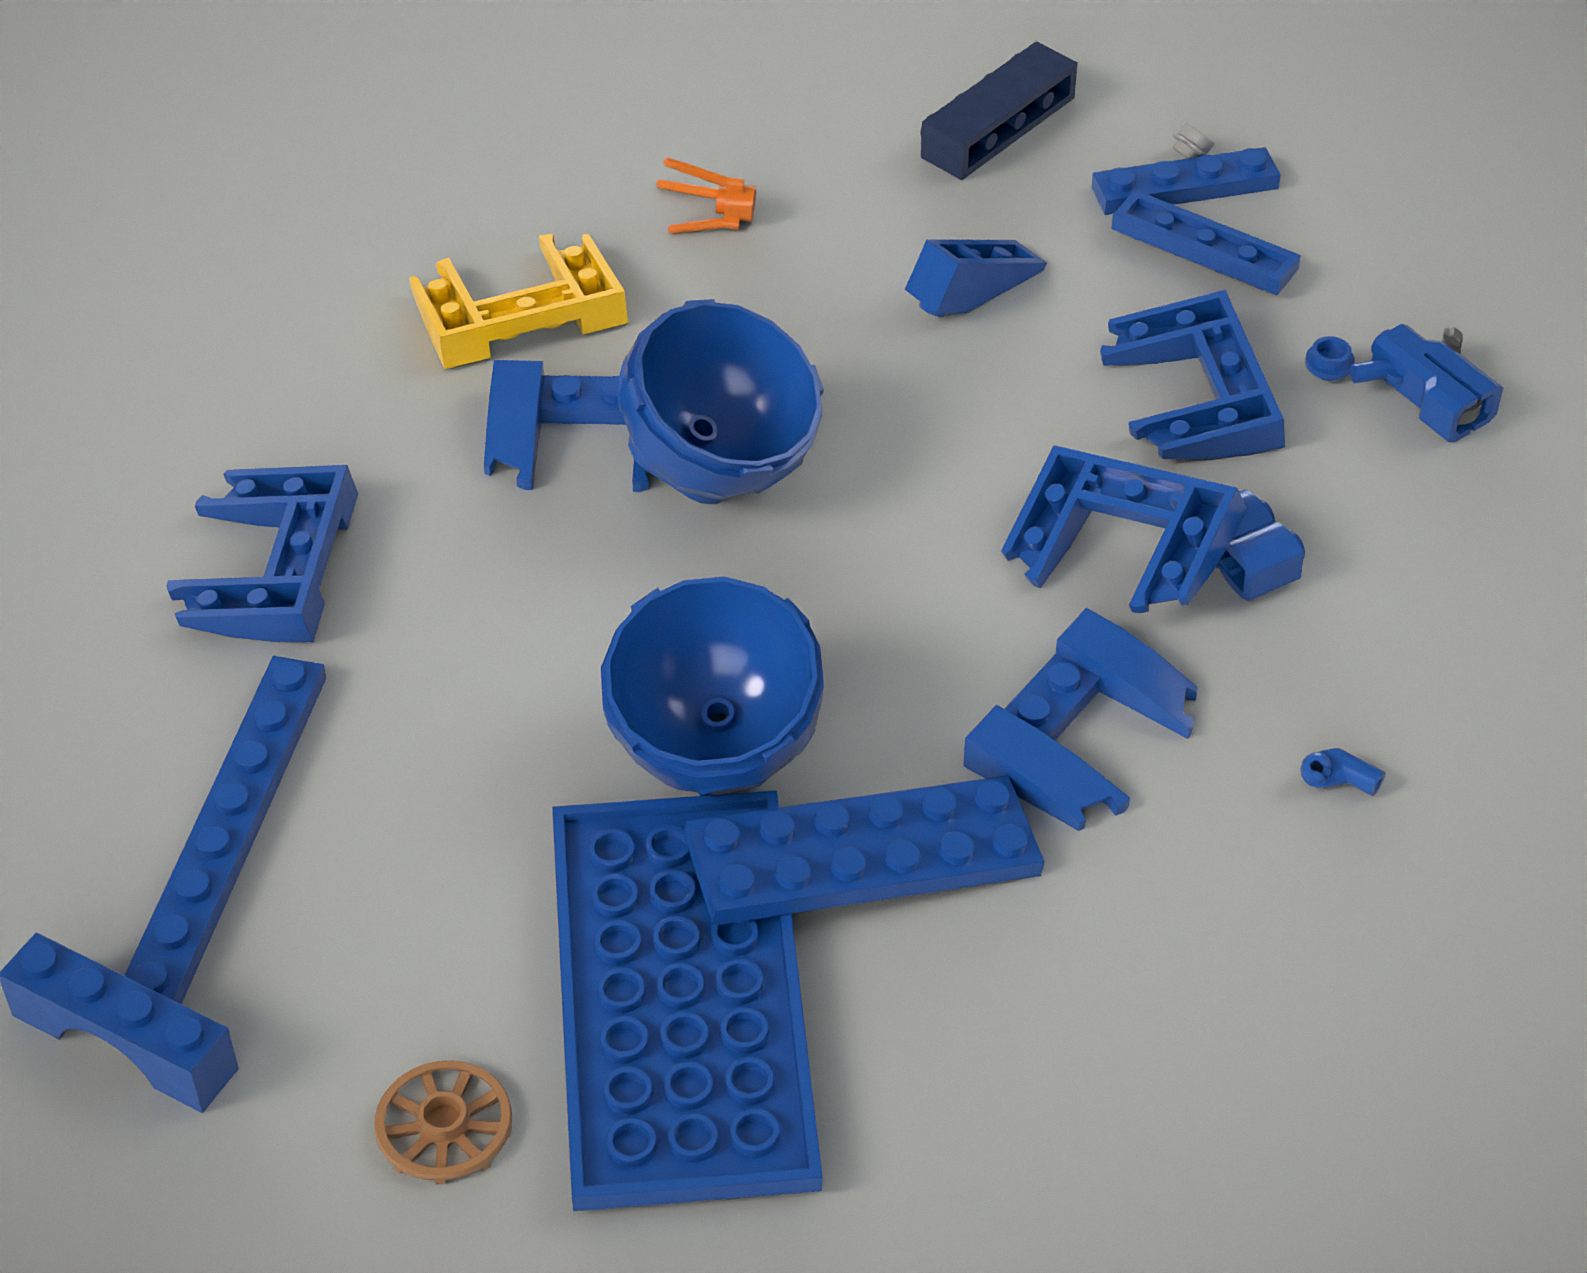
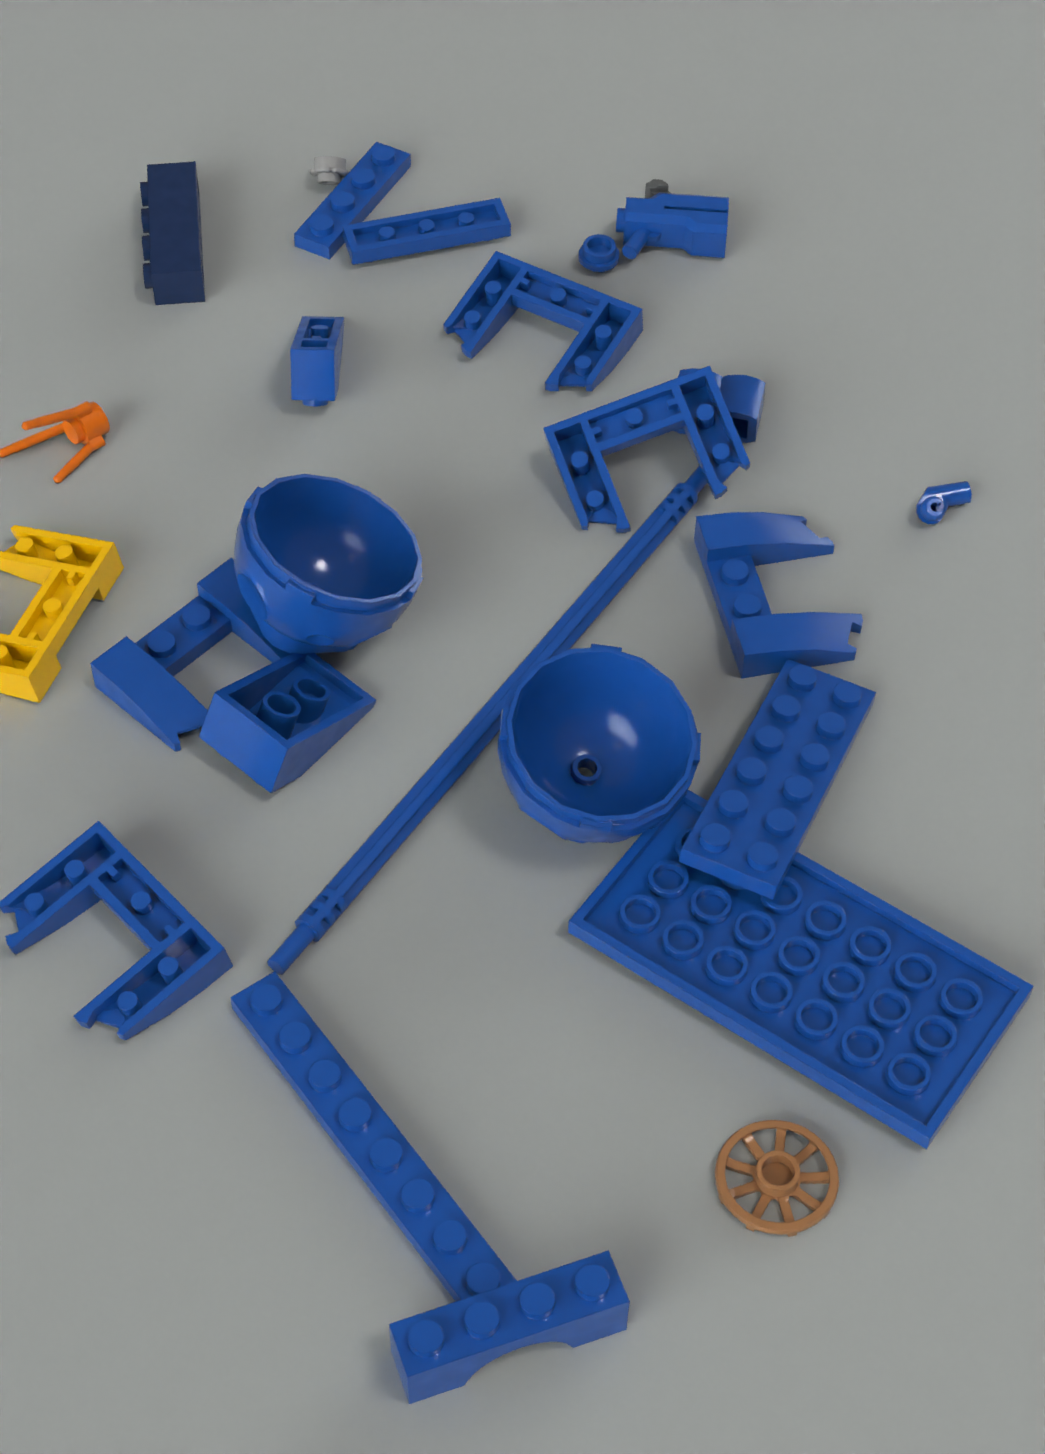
camera: 50 degrees left, 5 degrees up
(572, 502) = (283, 718): none -> blue slope
(824, 620) = (482, 728): none -> blue axle

